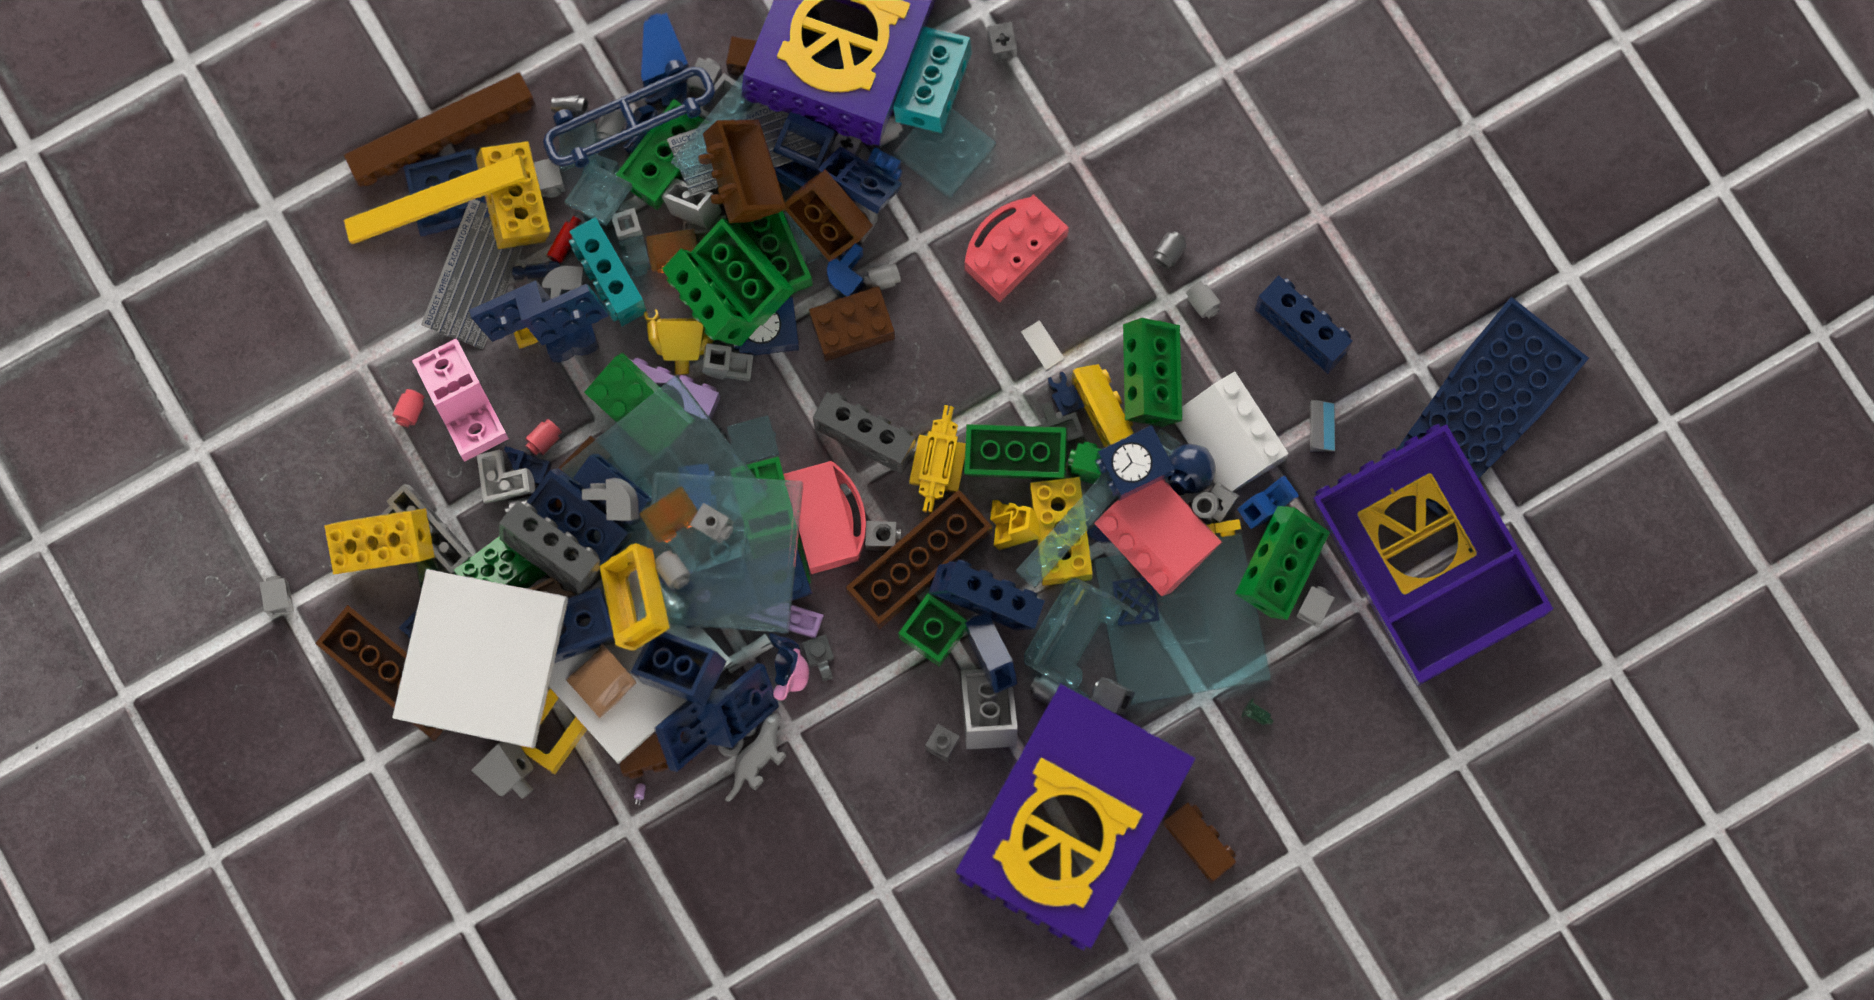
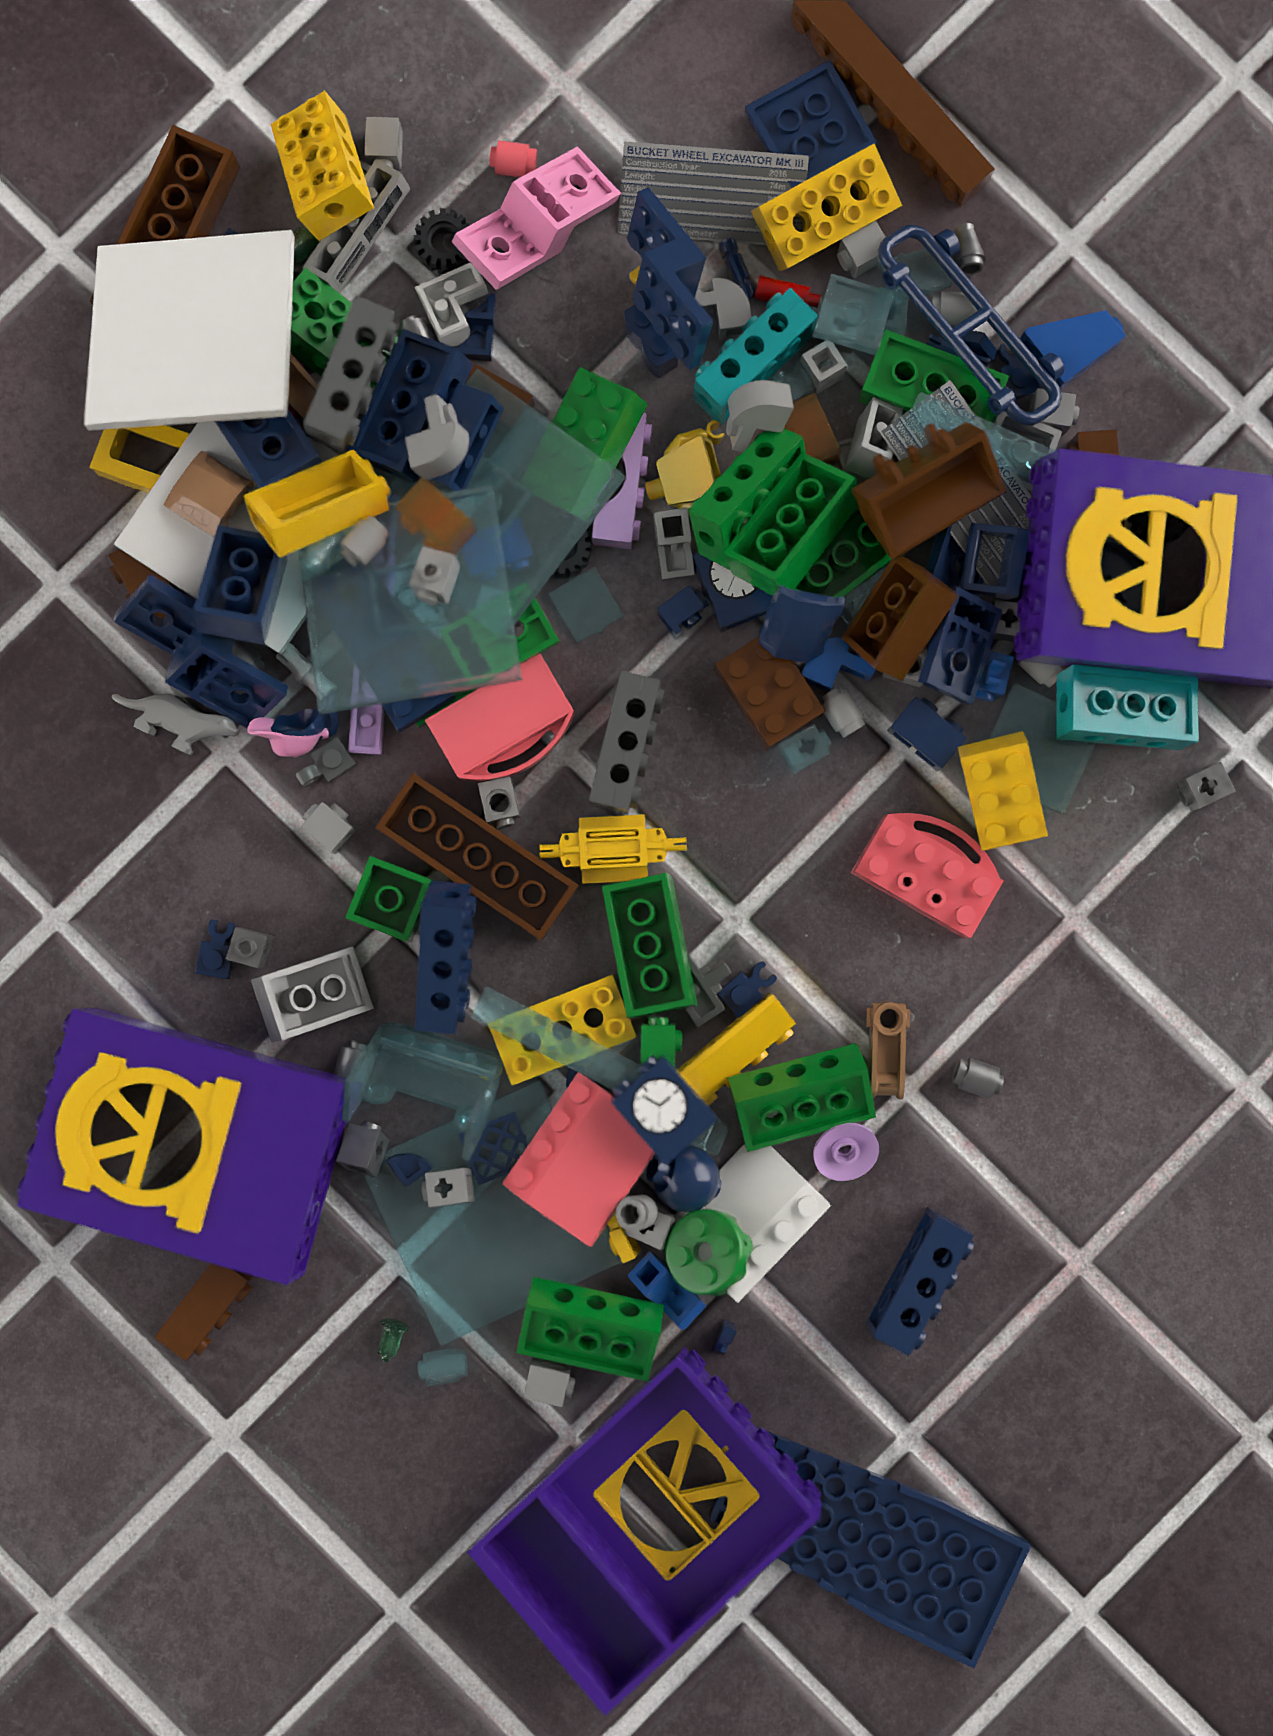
camera: 75 degrees right, 10 degrees up
(276, 596) = (231, 65): light grey brick -> none
(369, 499) = (383, 141): none -> light grey brick
(435, 199) = (793, 110): yellow tile -> none
(457, 488) = (426, 233): none -> black tyre
(505, 769) = (68, 412): light grey torso -> none
(543, 437) = (518, 338): coral brick -> none
(639, 792) = (101, 585): lavender piece -> none
(650, 275) = (758, 406): none -> light grey brick
(777, 371) = (682, 610): none -> dark blue brick
(813, 285) = (799, 624): none -> dark blue slope
(867, 664) = (328, 826): none -> light grey brick
(901, 319) = (798, 761): none -> clear light blue brick
(916, 218) = (927, 732): none -> dark blue piece
(941, 774) = (213, 954): none -> dark blue plate
(969, 178) = (1002, 791): none -> yellow brick
(991, 652) = (375, 980): dark blue brick -> none
(1013, 524) = (554, 966): yellow slope -> none
(1042, 345) = (808, 943): white sticker -> none
(1131, 305) = (887, 1049): none -> medium nougat piece
(1134, 668) = (409, 1167): none -> dark blue tile
(1163, 632) = (462, 1187): none -> light grey brick
(1203, 300) = (920, 1138): light grey brick -> none
(1207, 352) = (849, 1161): none -> lavender dish
(1260, 454) = (728, 1256): none -> green plate
(1286, 679) = (443, 1366): none -> clear light blue brick
(1311, 473) = (724, 1337): none -> dark blue tile
(1322, 426) = (791, 1333): light grey slope -> none

